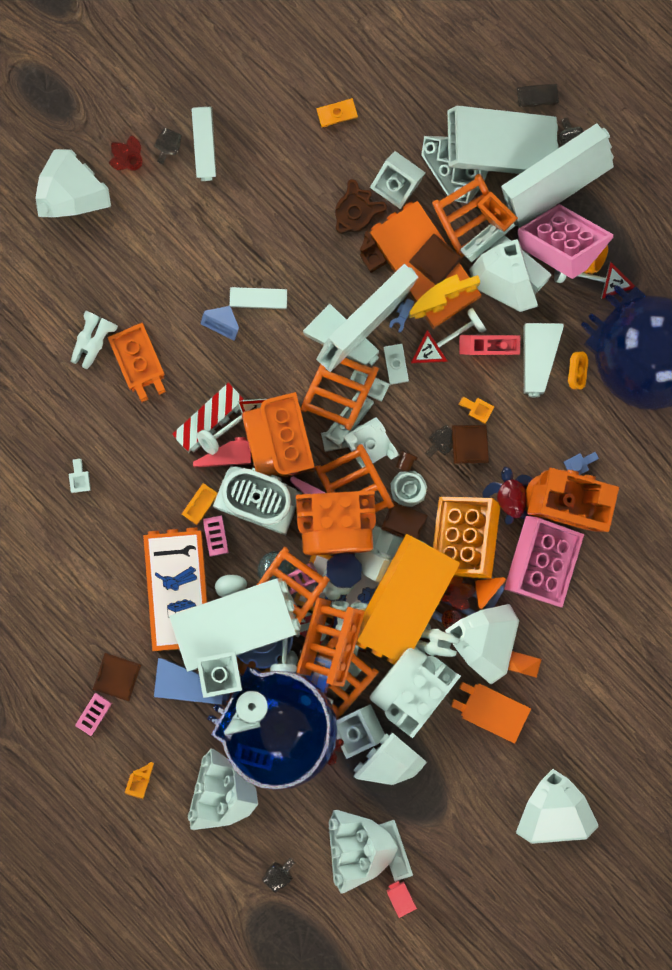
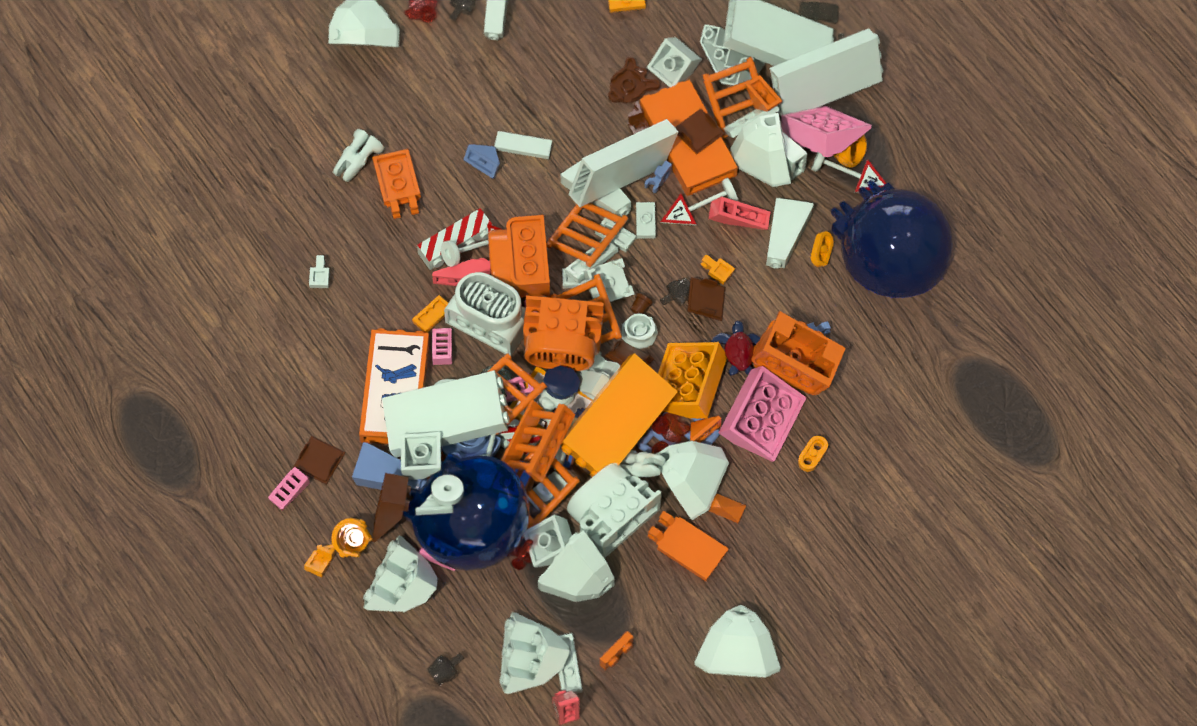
camera: 10 degrees right, 20 degrees down
(163, 759) = (350, 537): none -> light orange helmet
(198, 727) = (390, 504): none -> reddish brown slope
(435, 297) = (693, 159): yellow slope -> none
(444, 826) = (611, 658): none -> orange plate
(599, 595) = (812, 454): none -> light orange plate

